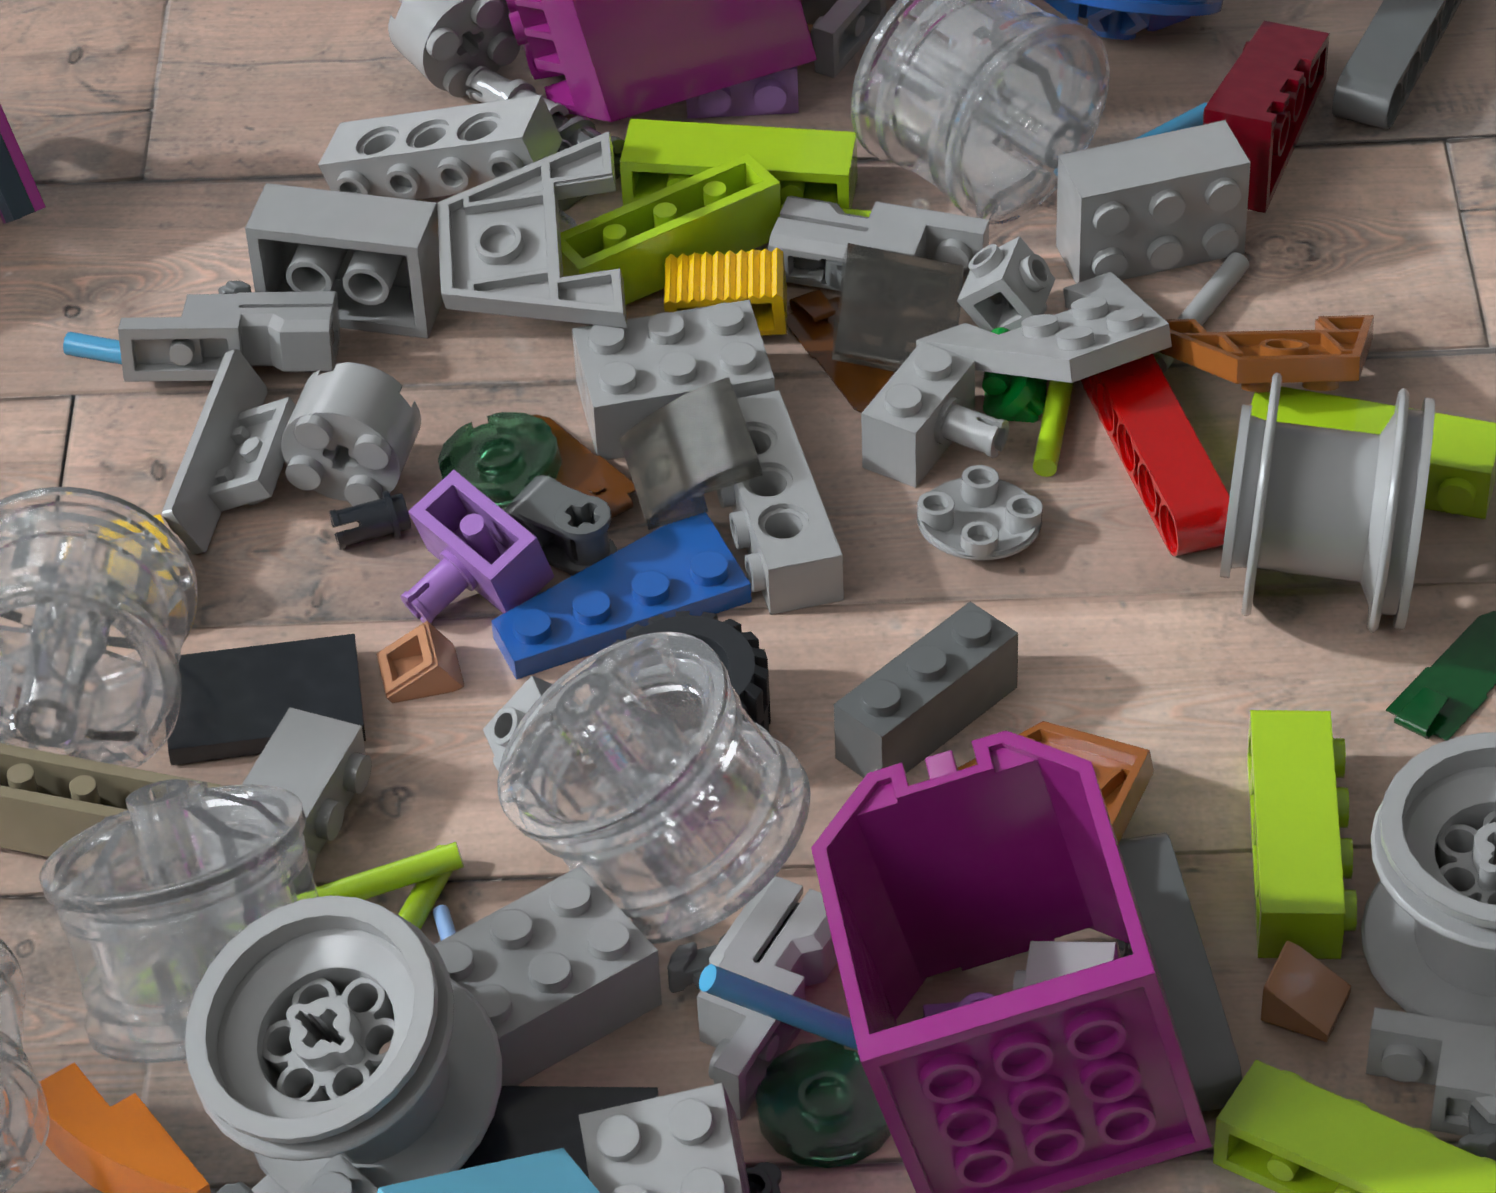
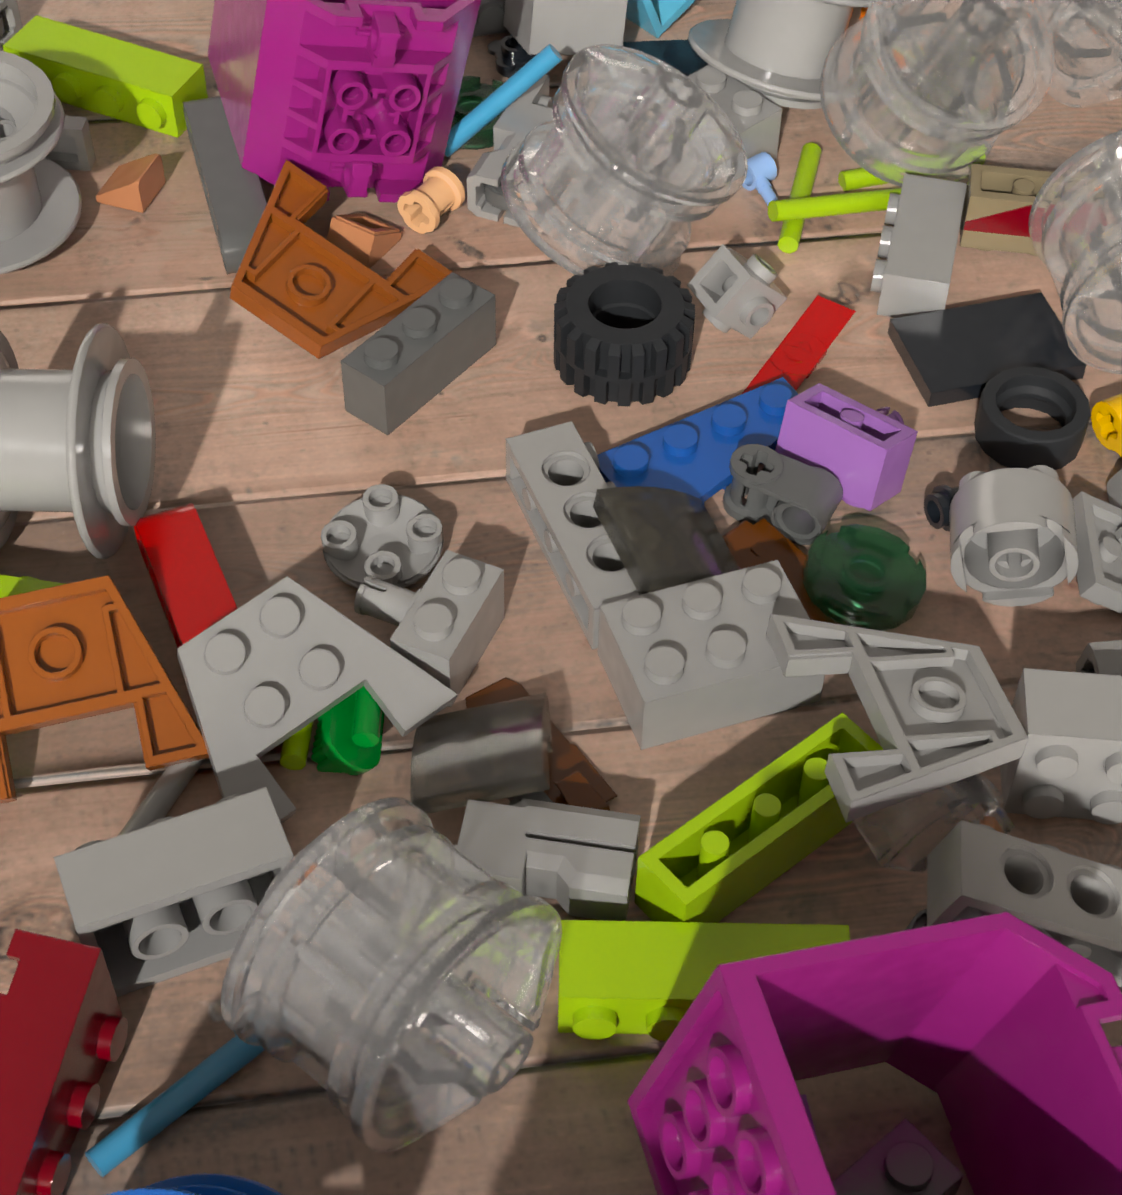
camera: 170 degrees right, 5 degrees up
(251, 566) = (1036, 390): none -> black tyre
(419, 665) = (866, 381): nougat slope -> none
(465, 723) = (804, 344): none -> red piece
(728, 278) = (674, 768): yellow brick -> none
(1006, 286) = (356, 771): light grey brick -> none
(1297, 833) = (118, 266): lime brick -> none

